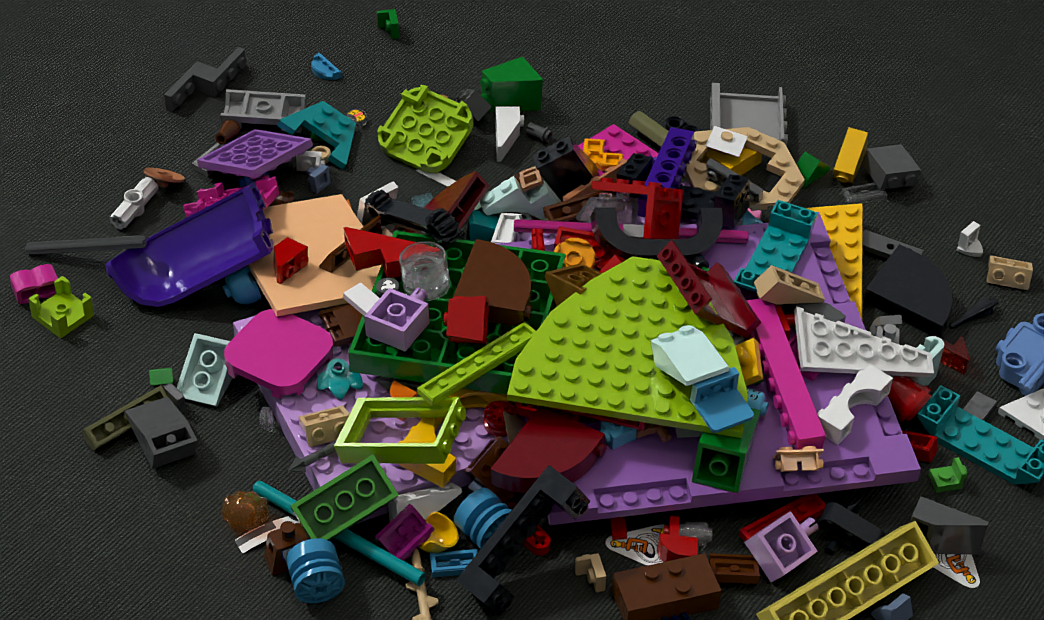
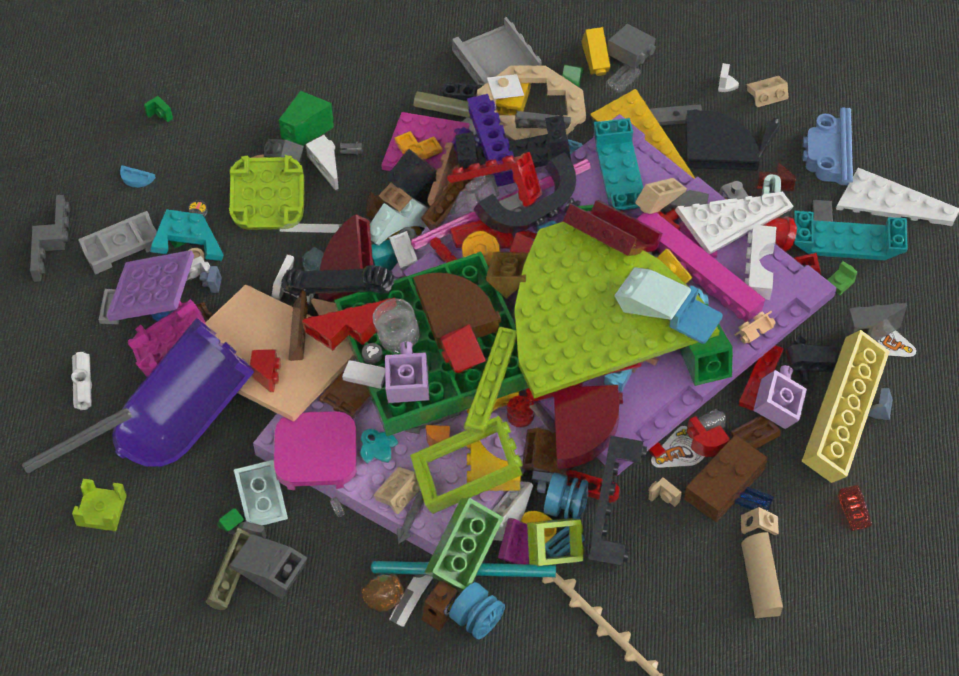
camera: 30 degrees left, 10 degrees up
(35, 281) = (59, 496): dark pink brick -> none
(164, 177) = (86, 343): nougat dish -> none
(229, 130) = (106, 275): reddish brown cone -> none
(242, 287) = (235, 410): dark azure cylinder -> none
(418, 538) = (536, 541): none -> lime window
(883, 320) = (725, 179): light grey slope -> none

